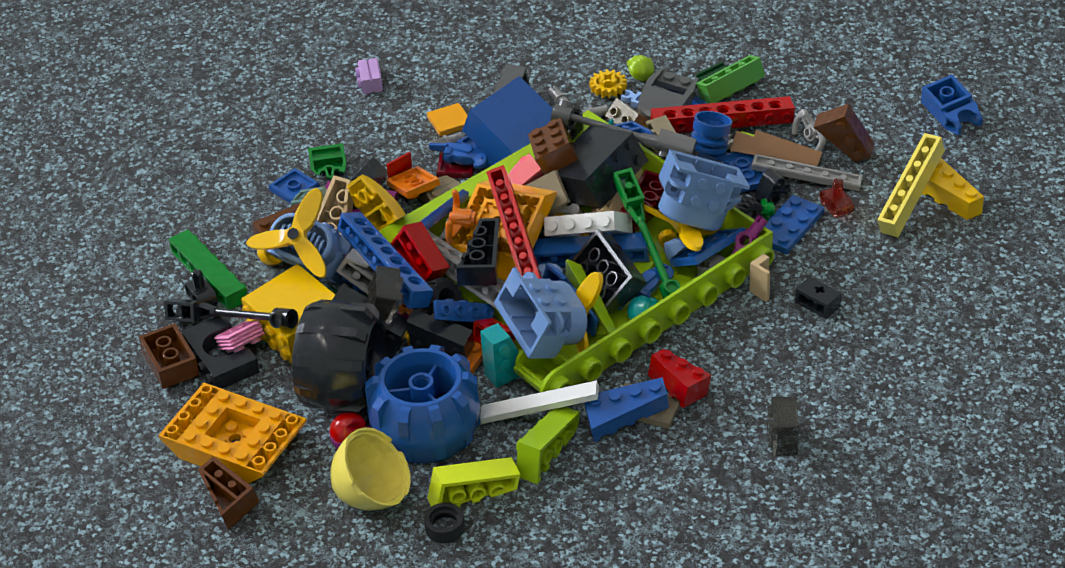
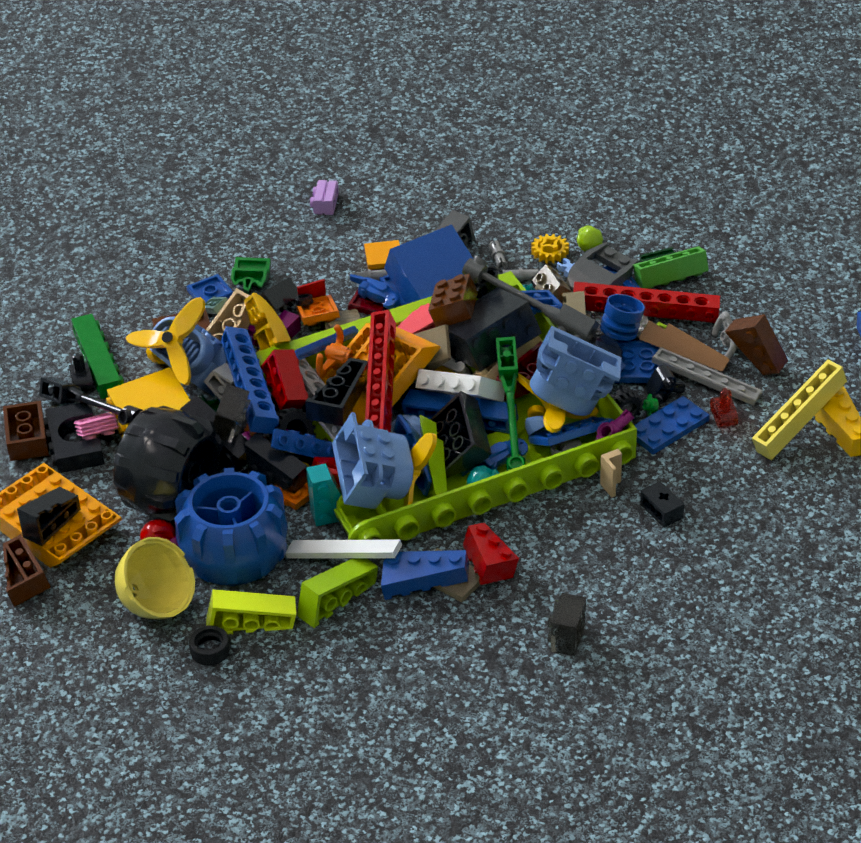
camera: 15 degrees right, 0 degrees up
(236, 431) = (47, 514): none -> black wedge
(396, 175) = (304, 299): none -> black tile

